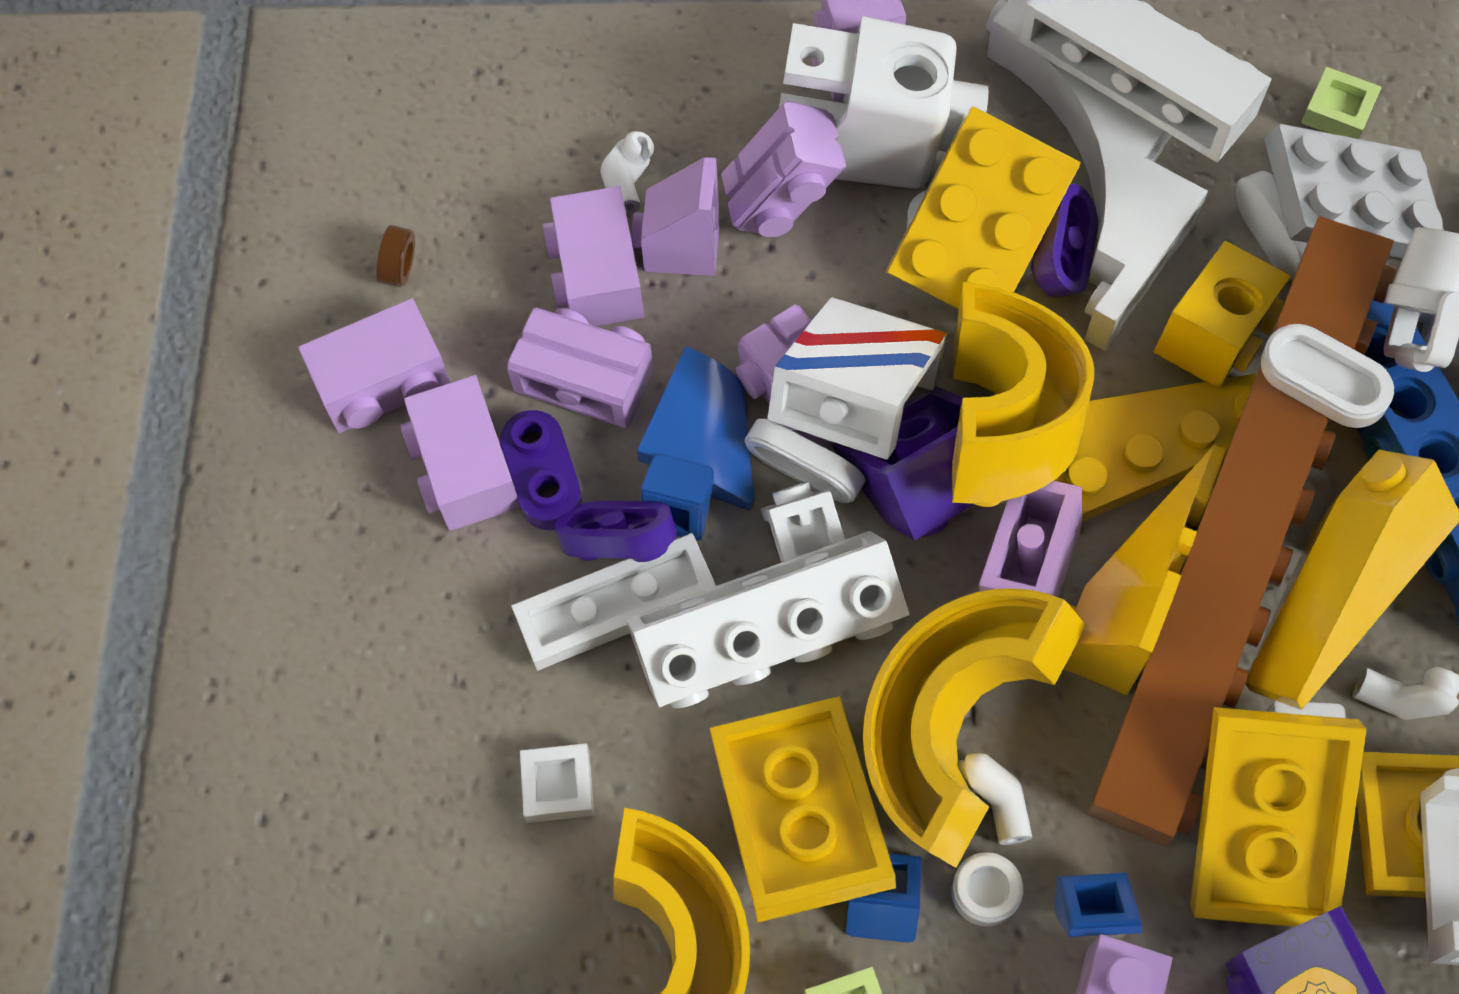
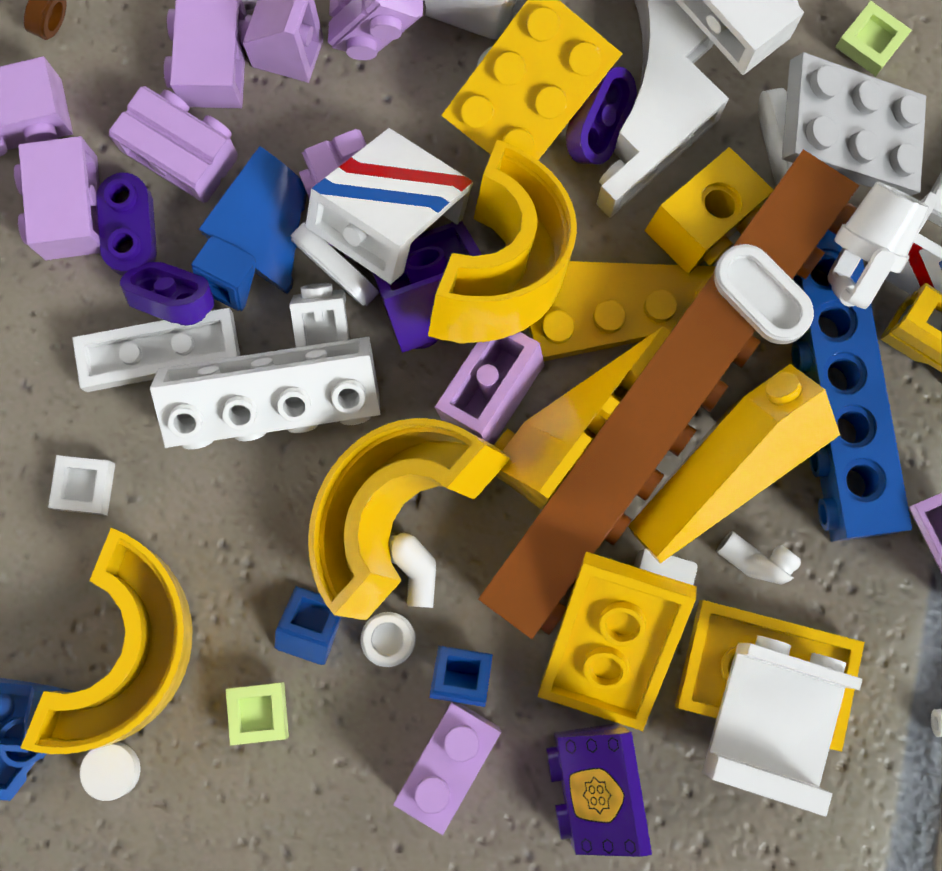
camera: 10 degrees right, 15 degrees up
(801, 809) = (255, 550): yellow plate -> none

